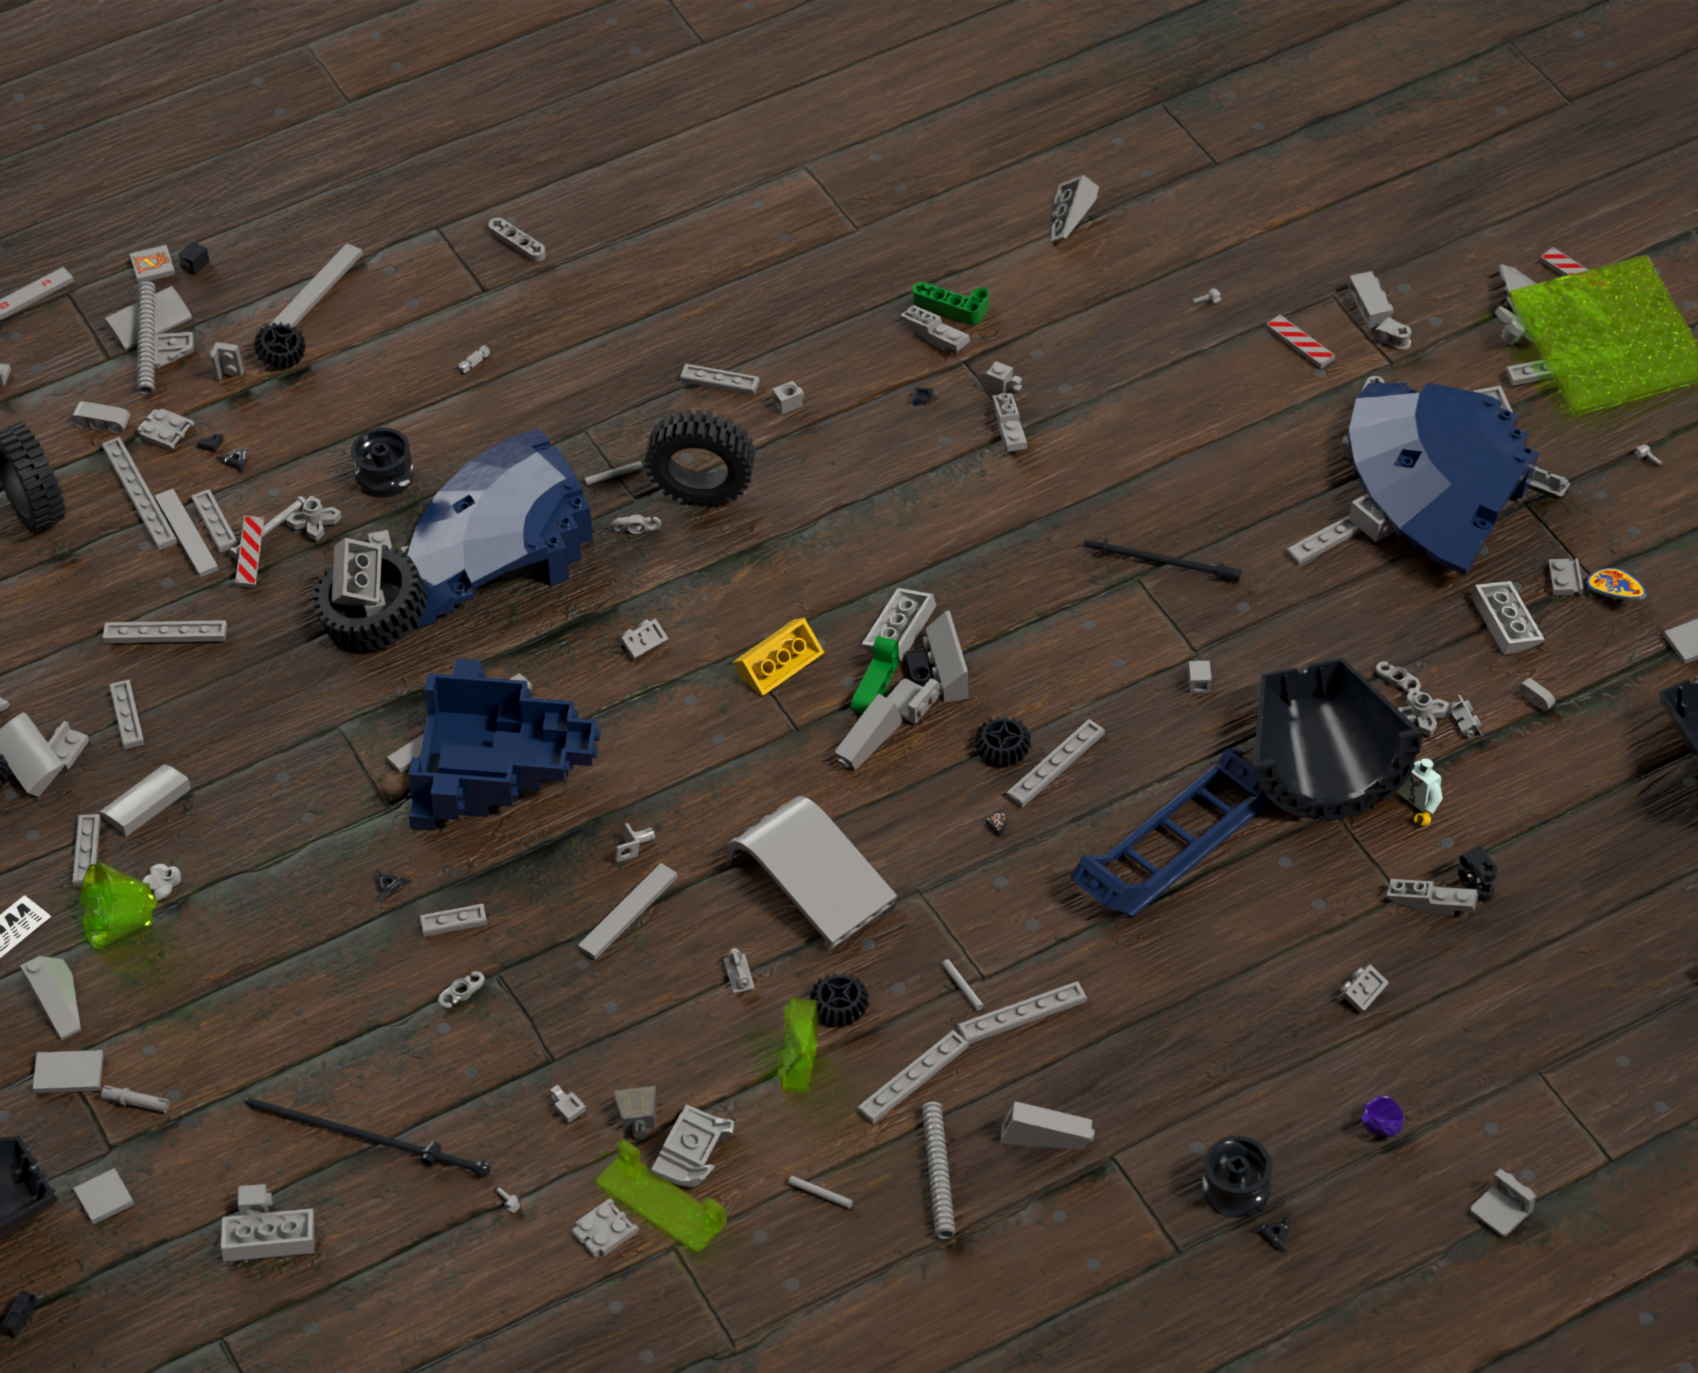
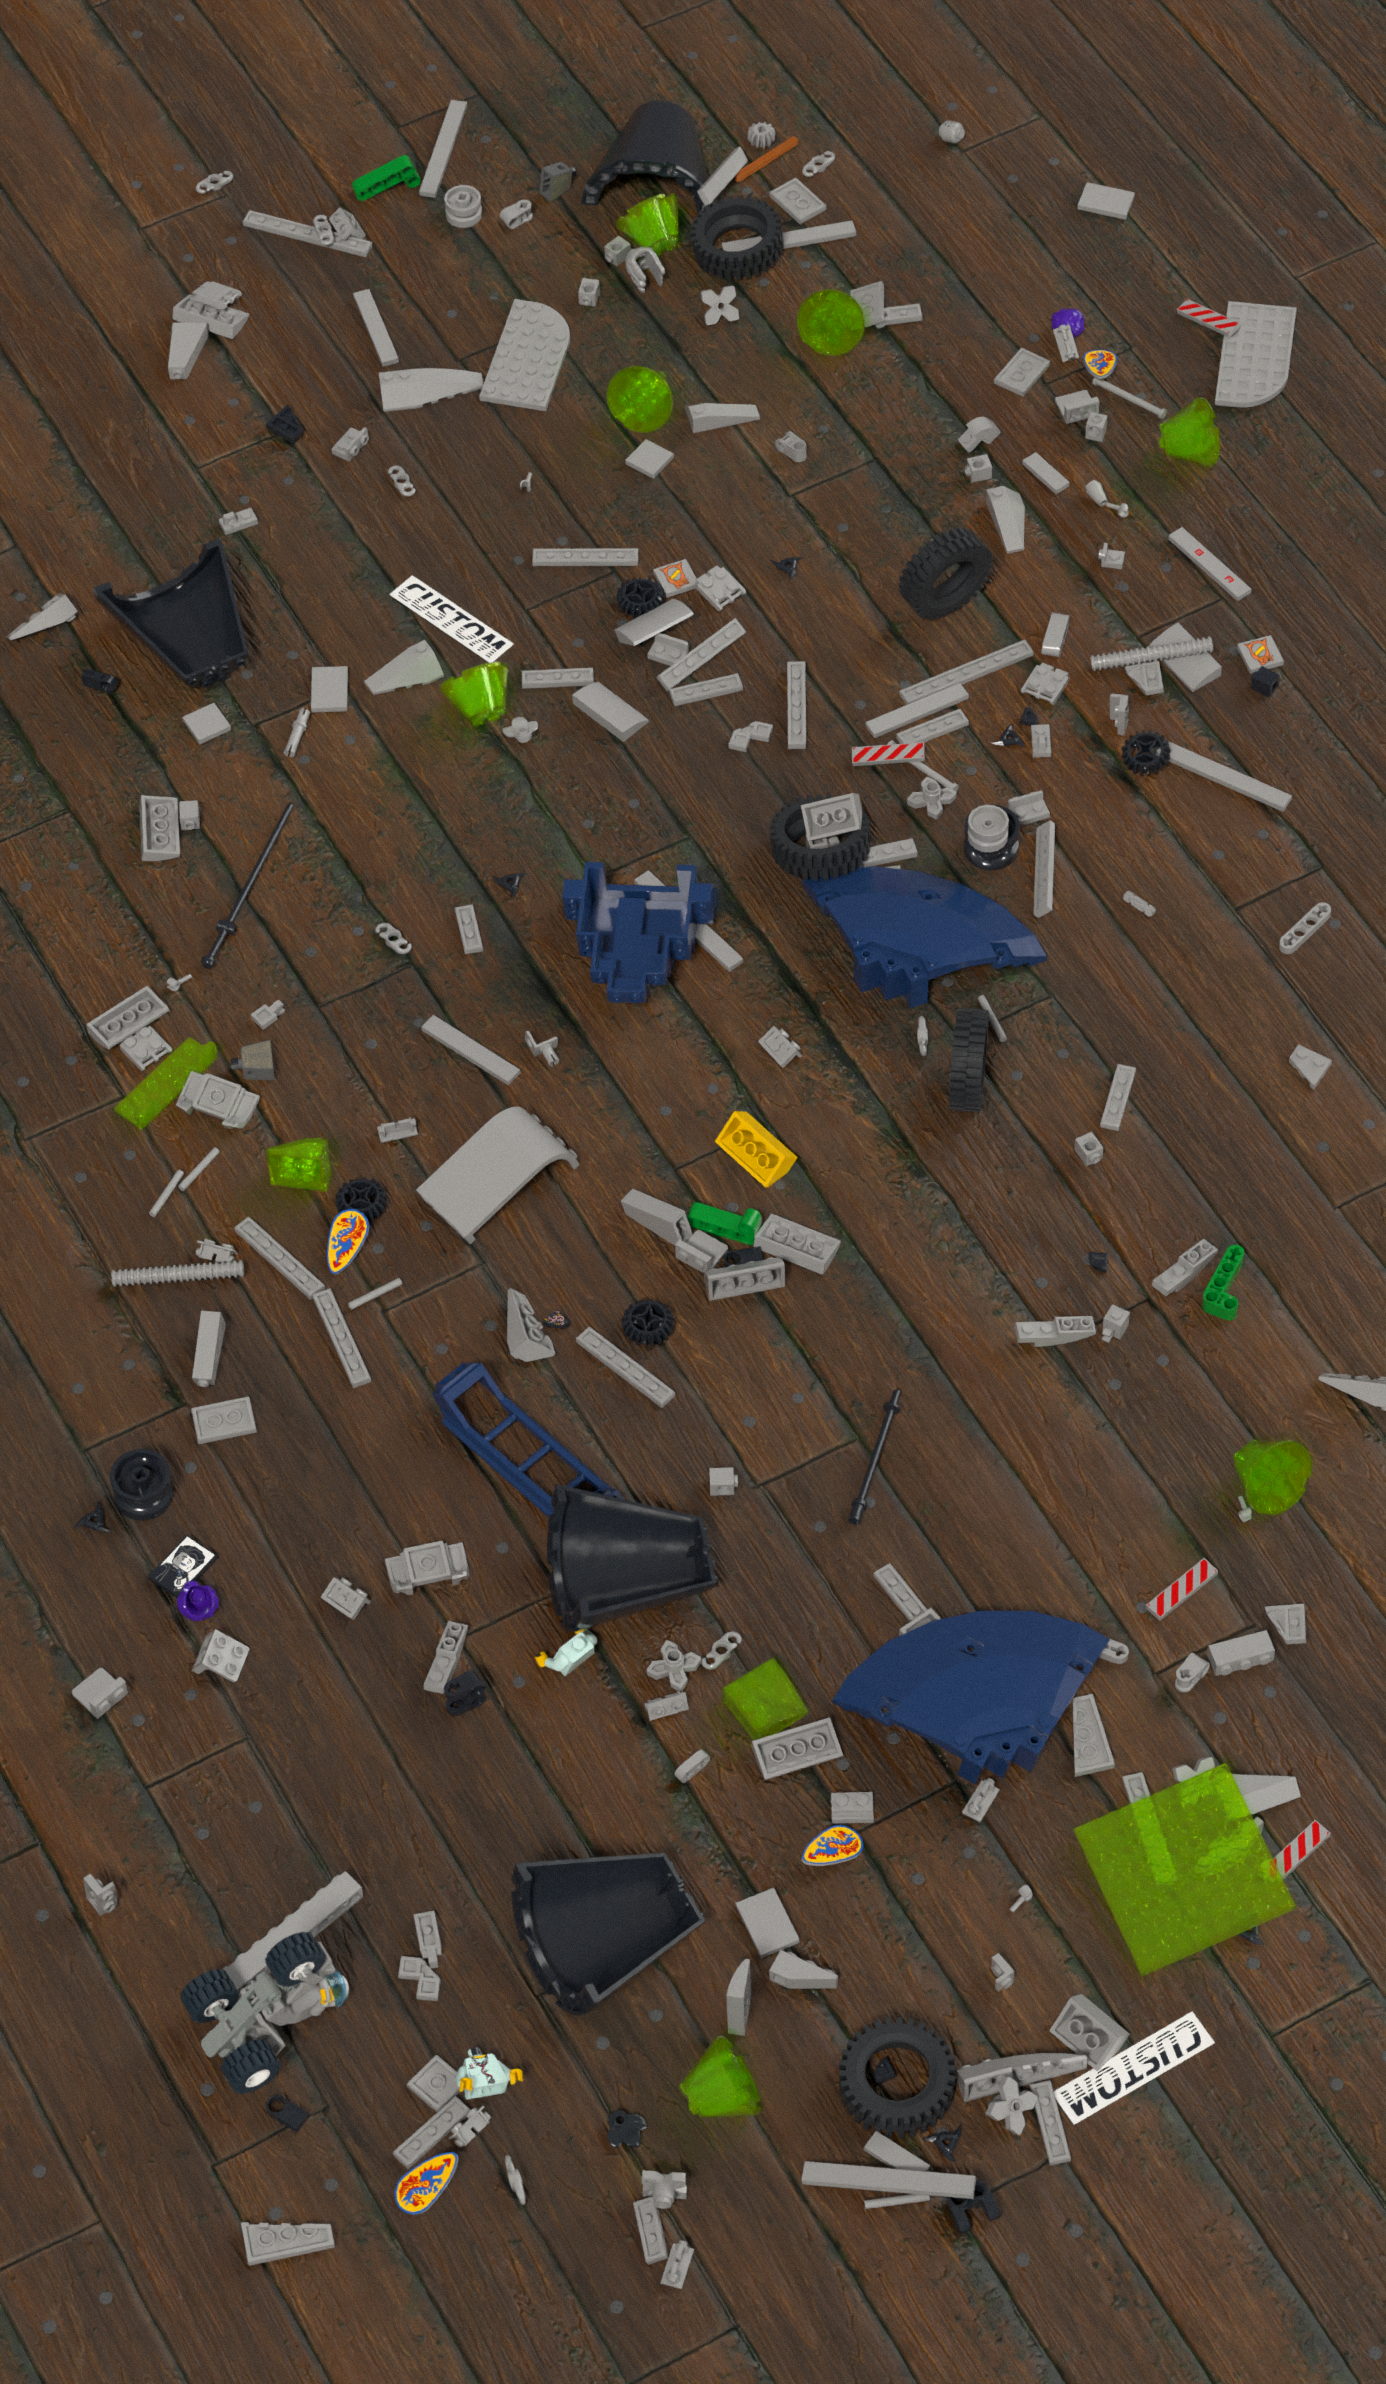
camera: 90 degrees right, 5 degrees up
(76, 716) = (701, 654): none -> light grey tile
(195, 672) = (757, 730): none -> light grey tile
(244, 433) = (1041, 740): none -> light grey hinge
(338, 442) = (1029, 807): none -> light grey bracket
(394, 441) = (988, 828): none -> light grey wheel
(428, 427) = (1044, 869): none -> light grey plate
(565, 1244) = (126, 1018): none -> light grey slope
(687, 240) = (1310, 1064): none -> light grey wing
(785, 1161) = (198, 1169): none -> light grey bar
(895, 1007) = (346, 1239): none -> shield
(908, 1127) = (208, 1249): none -> light grey hinge
(1027, 842) = (524, 1331): none -> light grey wedge
(1135, 1116) = (223, 1420): none -> light grey tile
(1177, 265) = (1273, 1474): none -> clear neon green cone
(1320, 921) = (427, 1565): none -> light grey piece
(1332, 1142) = (183, 1564): none -> tile
(1333, 268) = (1289, 1622): none -> light grey wing
(1446, 1100) = (221, 1656): none -> light grey bracket
(1457, 640) = (764, 1700): none -> clear neon green slope

